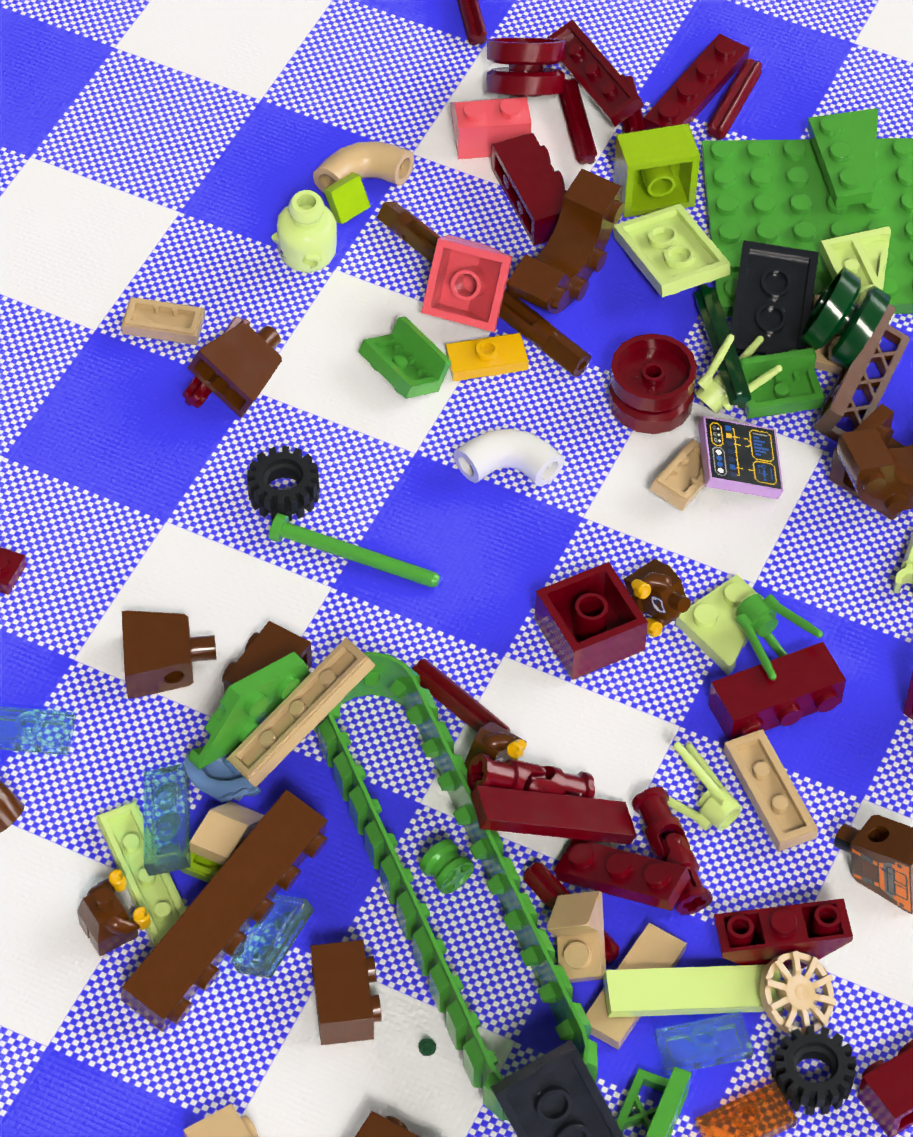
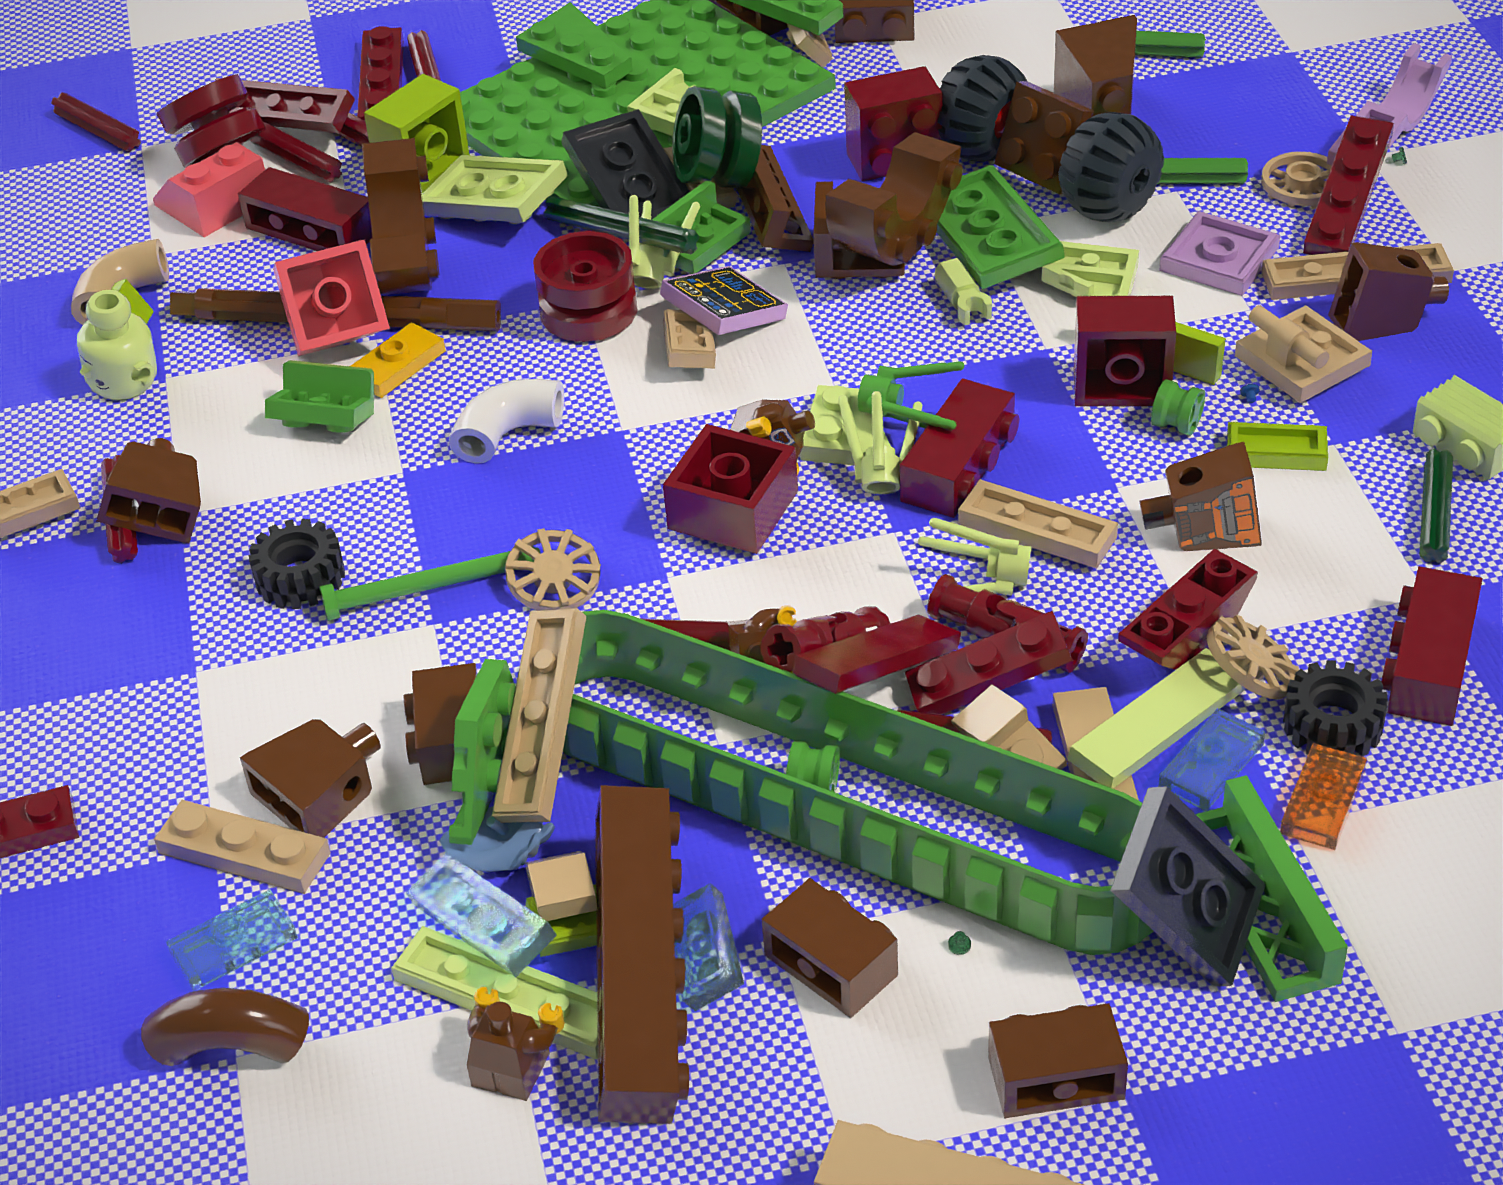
camera: 35 degrees left, 10 degrees down
(87, 670) = (242, 846): none -> tan plate
(431, 601) = (552, 570): none -> tan wheel
(706, 666) = (880, 467): none -> yellowish green plant

